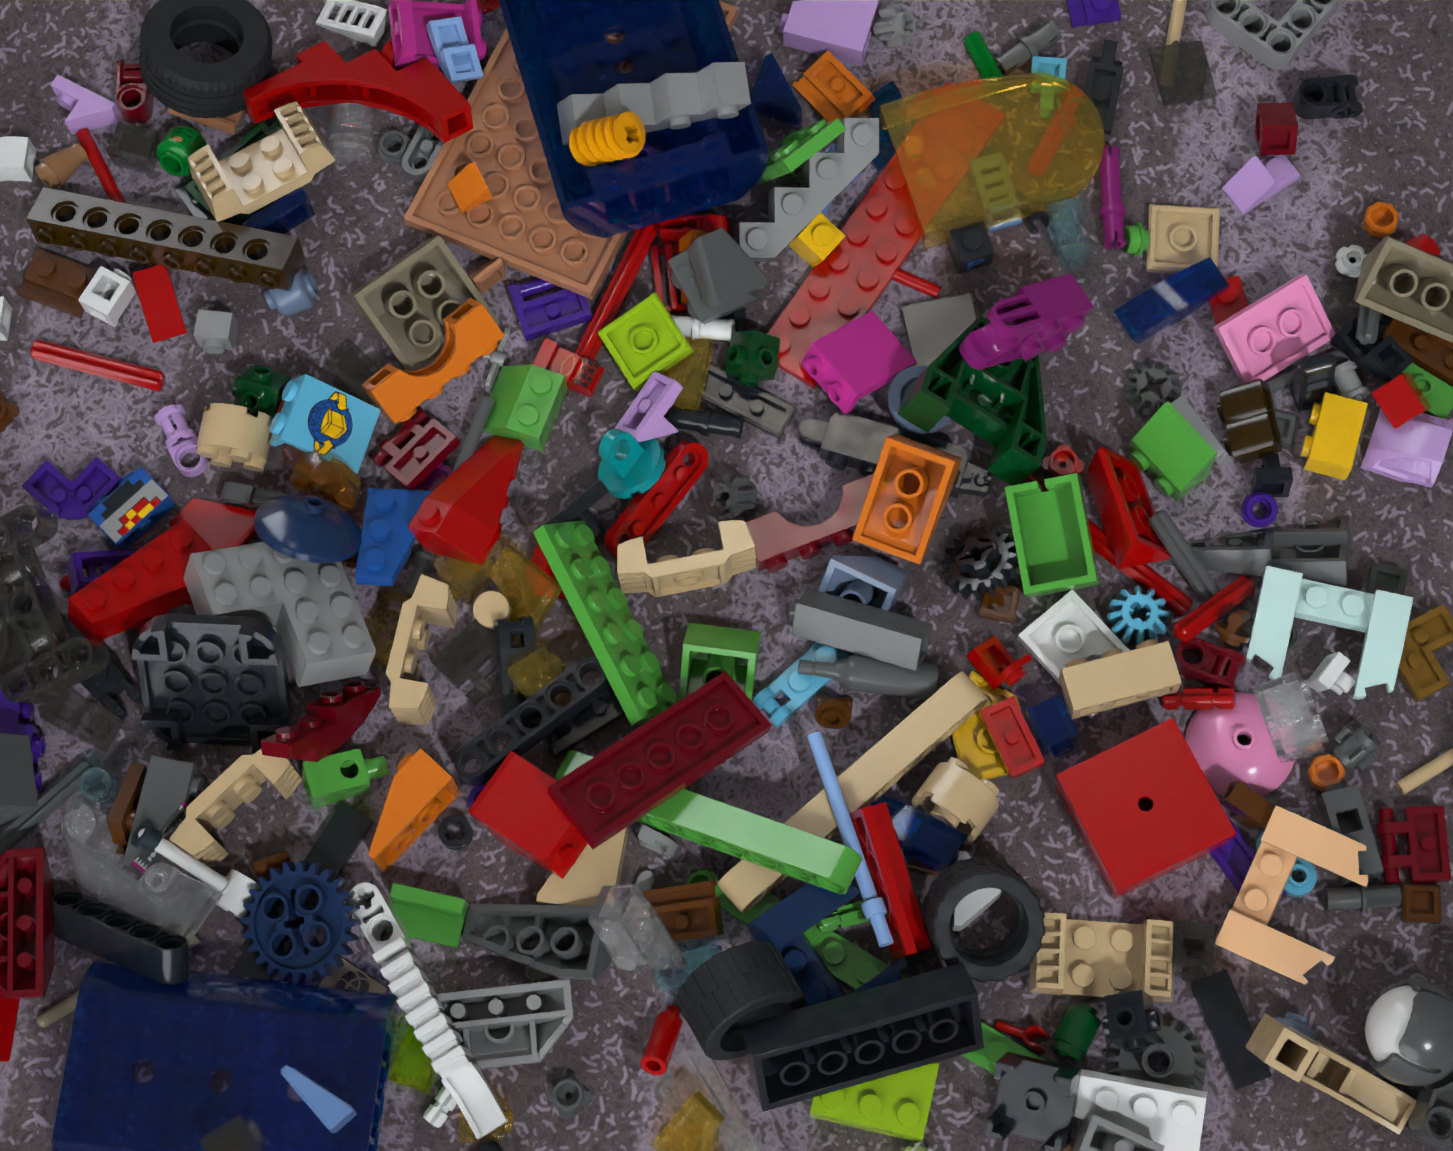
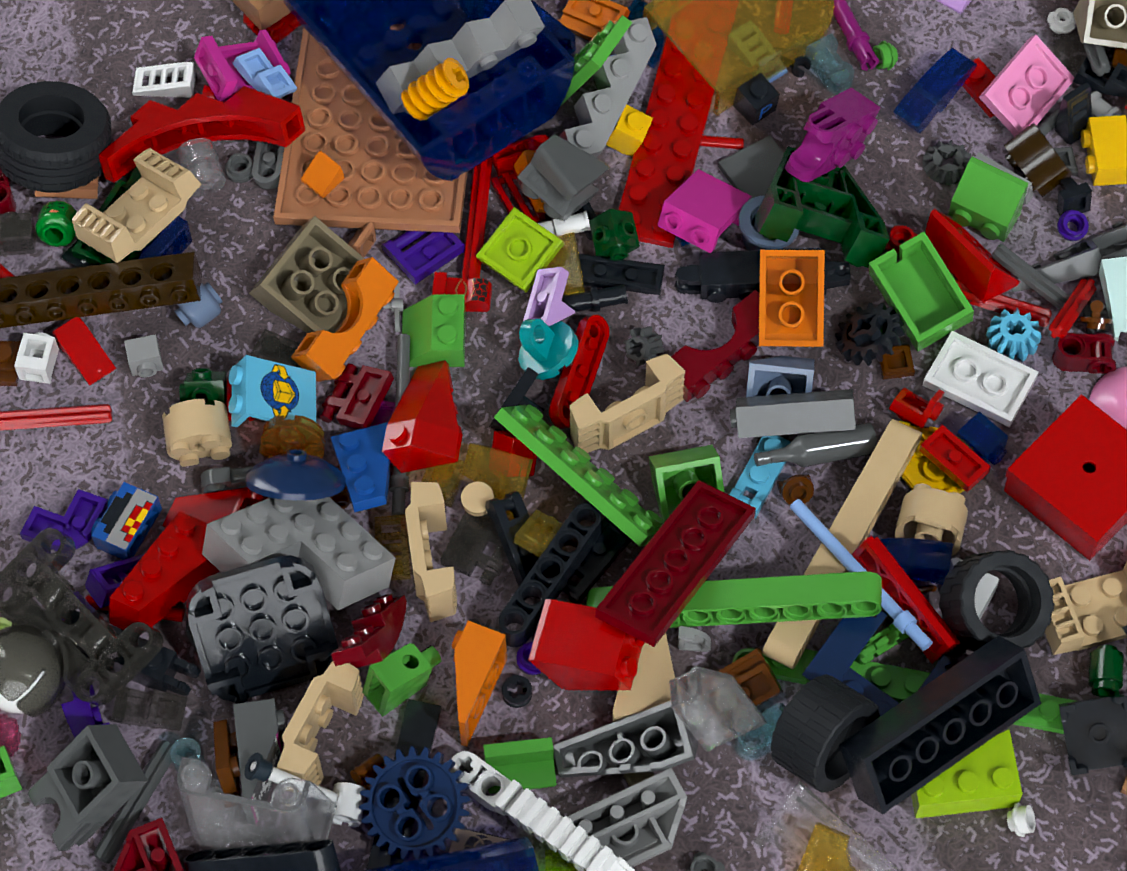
camera: 25 degrees left, 10 degrees down
(179, 447) = (146, 452): lavender connector -> none
(662, 1041) = (768, 796): red cylinder -> none
(1027, 1035) = (1067, 688): red hand -> none
(1119, 678) = (1023, 382): tan brick -> none
(1181, 237) = (919, 43): tan tile -> none
(1200, 699) = (1090, 381): red axle -> none

